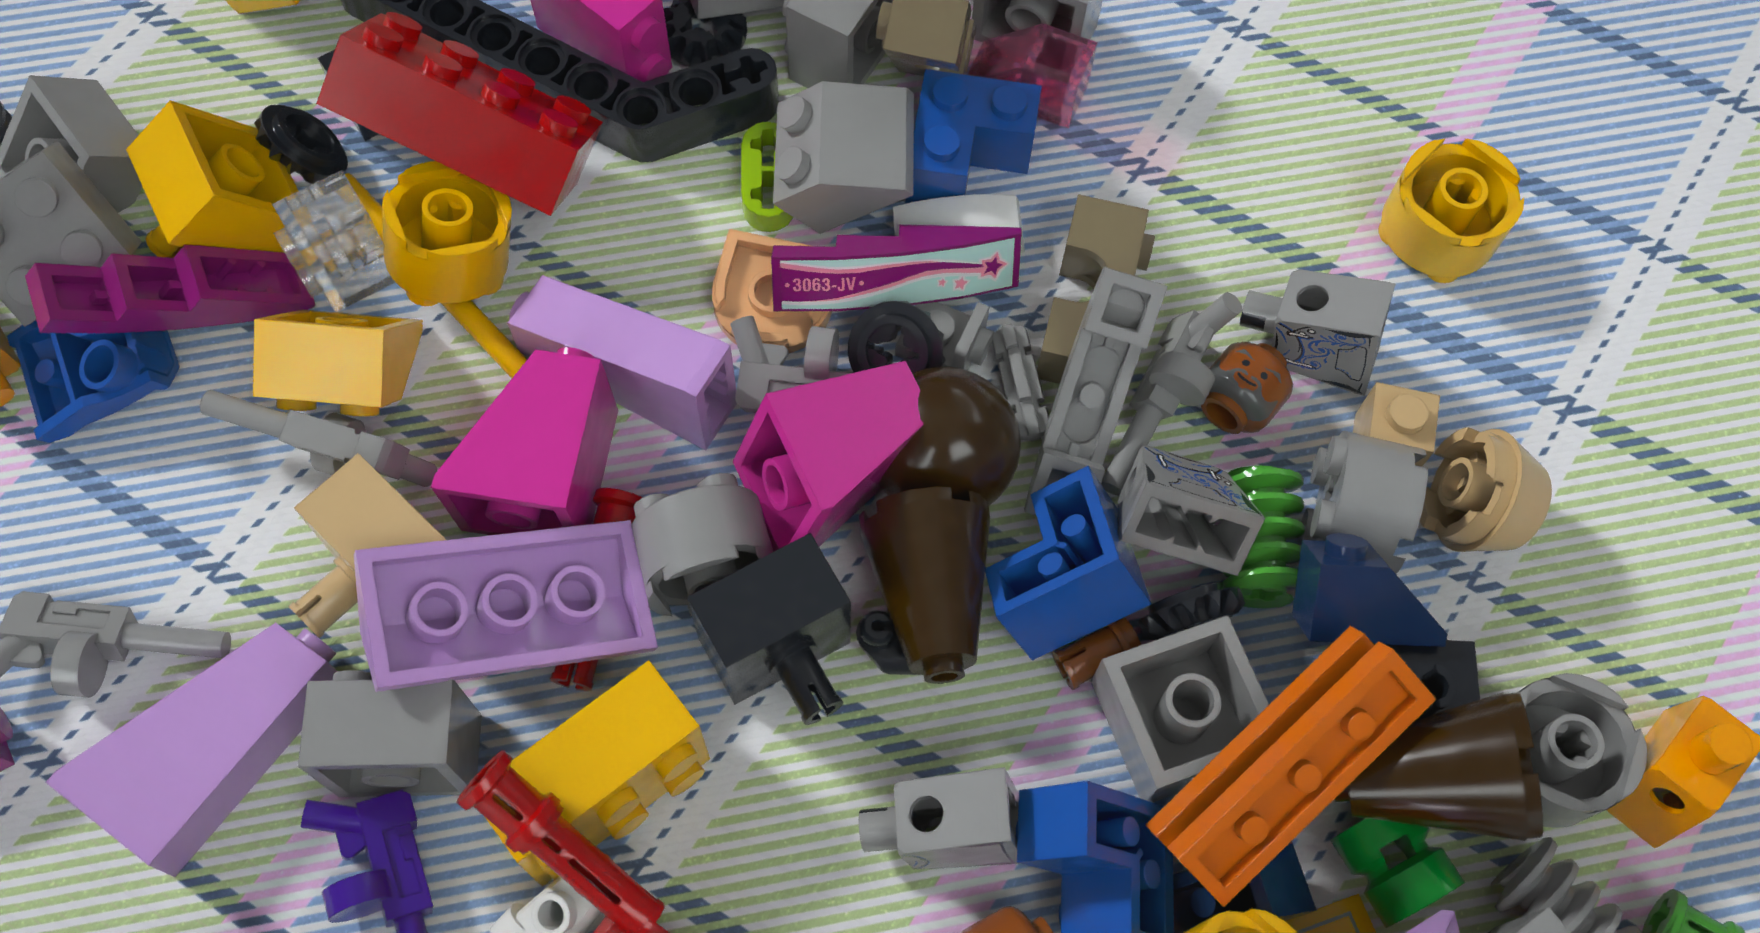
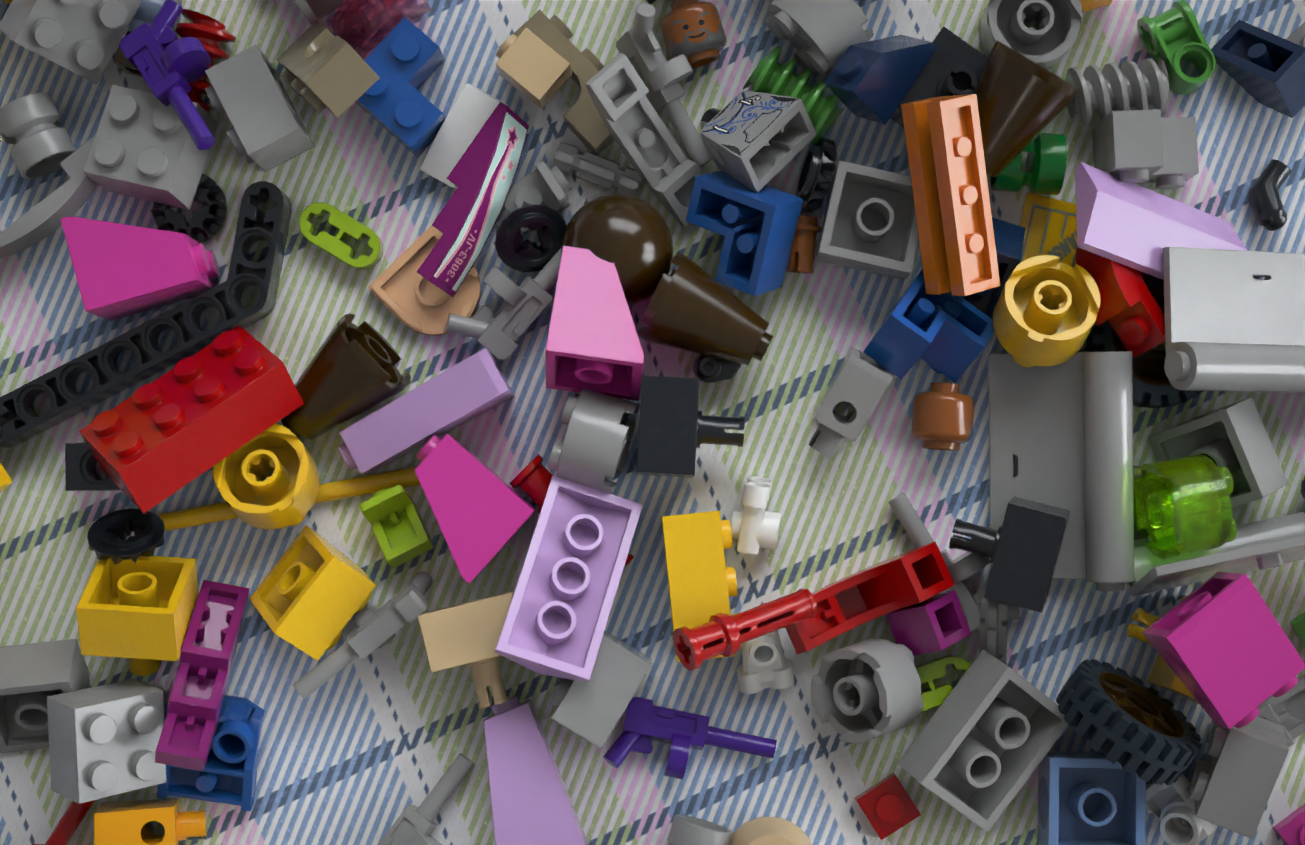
camera: 55 degrees left, 20 degrees up
(332, 242) = (229, 554): clear brick -> none
(463, 401) = (397, 525): none -> lime bracket
(610, 250) = (345, 378): none -> dark brown cone
(719, 804) = (756, 526): none -> white plate
(843, 152) = (368, 179): light grey slope -> none
(1081, 227) = (532, 67): none -> tan brick

